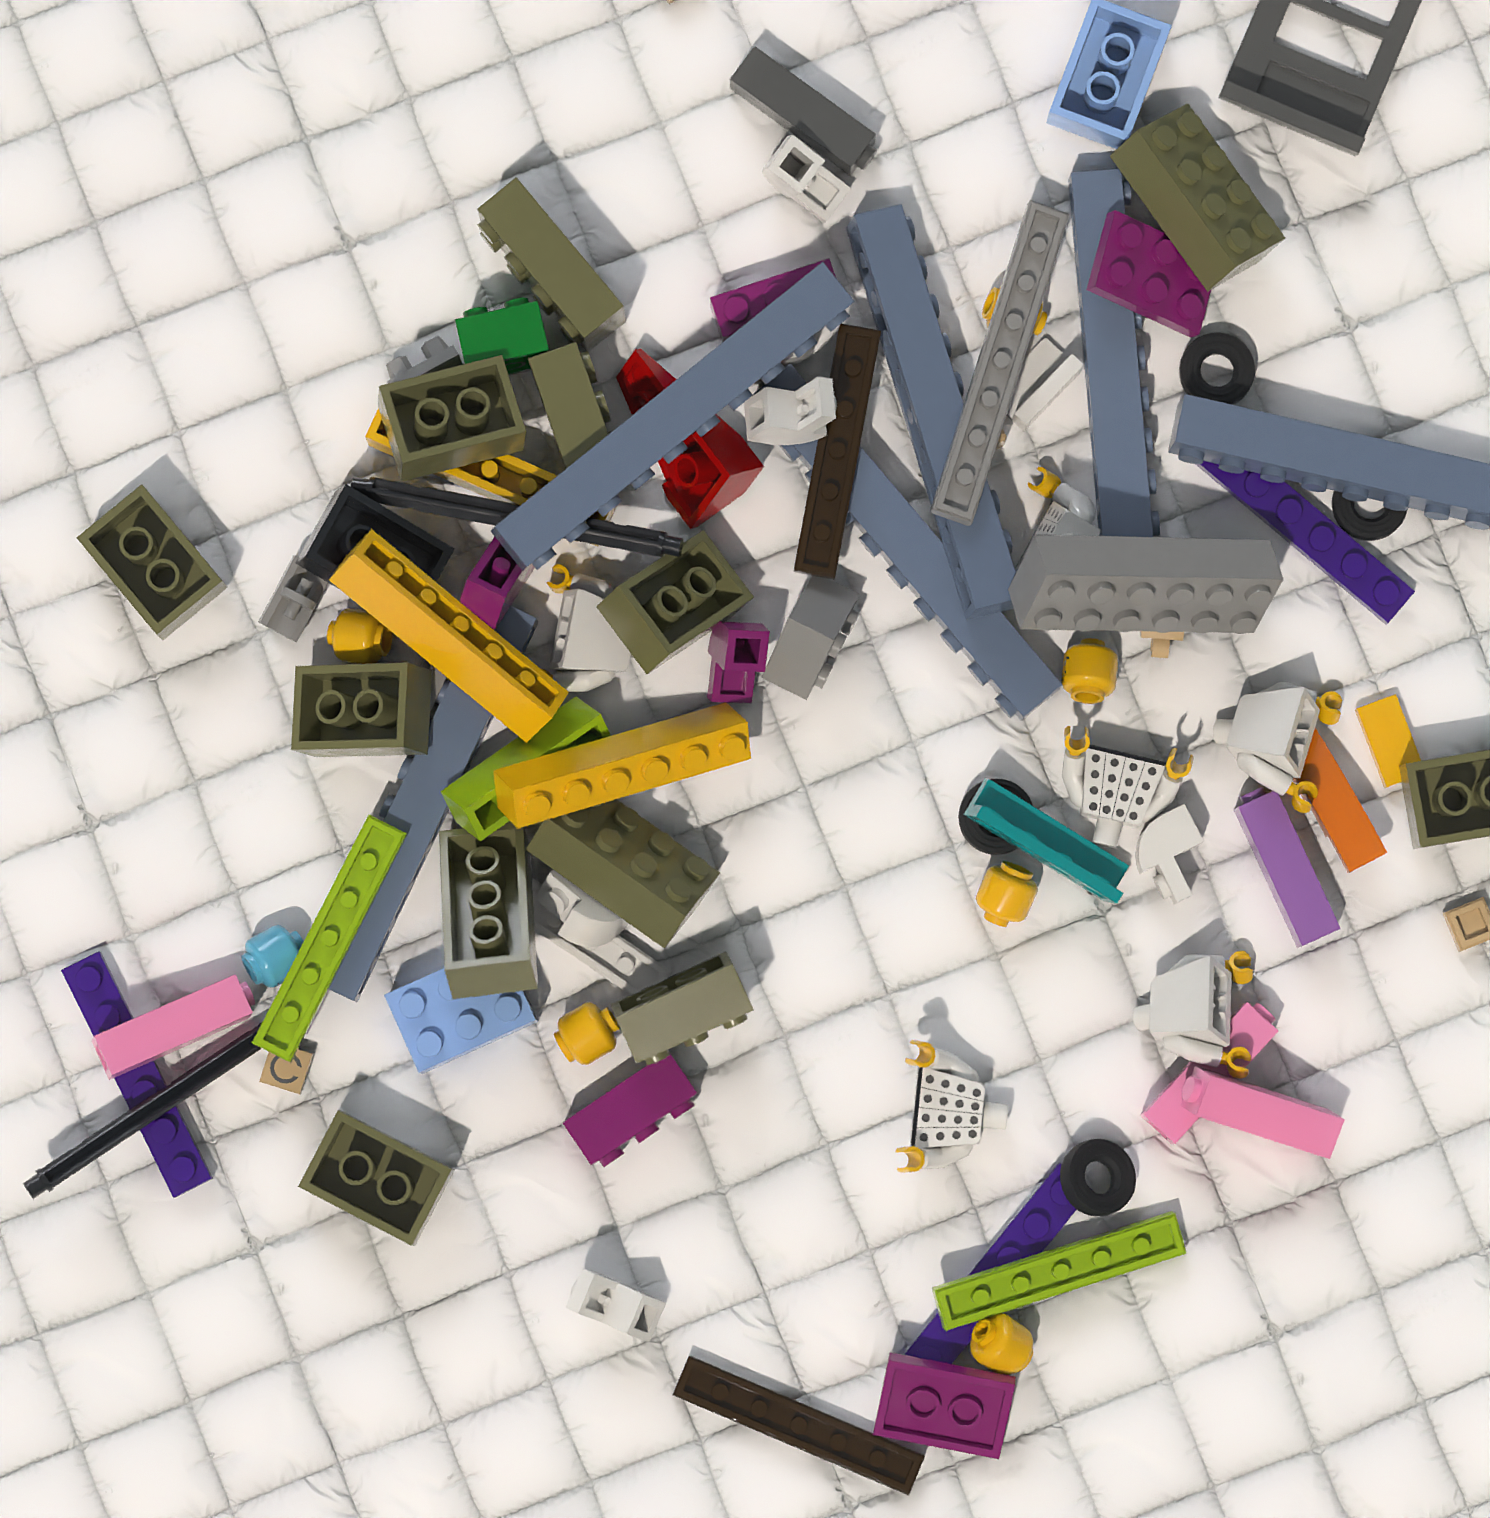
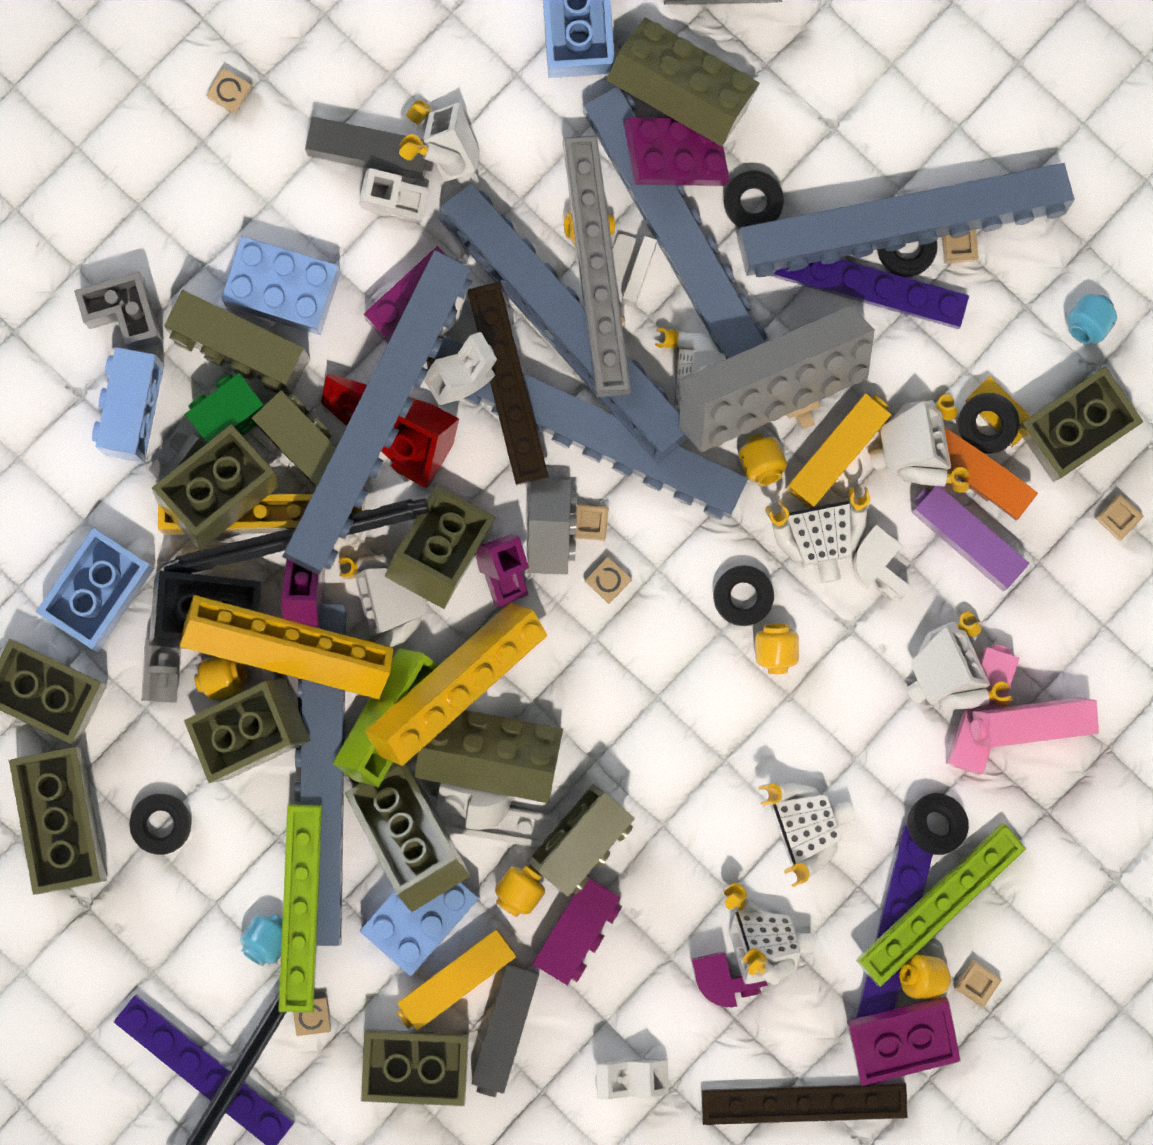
camera: 30 degrees left, 0 degrees up
(102, 714) = (57, 820): none -> olive brick
(173, 1026) = (215, 1025): bright pink brick -> none
(194, 756) = (141, 814): none -> black tyre
(263, 473) = (95, 590): none -> light blue brick
(396, 280) = (128, 404): none -> light blue brick
(447, 162) = (123, 301): none -> light grey brick
(467, 1101) = (455, 980): none -> yellow brick
(497, 1183) = (504, 1030): none -> dark grey brick
(631, 223) = (281, 285): none -> light blue brick
(760, 1242) = (715, 982): none -> magenta brick
(836, 1218) = (763, 940): none -> white torso
(850, 728) = (608, 580): none -> tan tile
(861, 653) = (591, 522): none -> tan tile
(895, 143) = (446, 141): none -> white torso
(1047, 841) = (789, 596): teal fence -> none
(1060, 1381) = (978, 983): none -> tan tile
(1182, 700) = (839, 450): none -> yellow brick
(1393, 740) = (997, 404): none -> black tyre
(1430, 533) = (960, 249): none -> tan tile

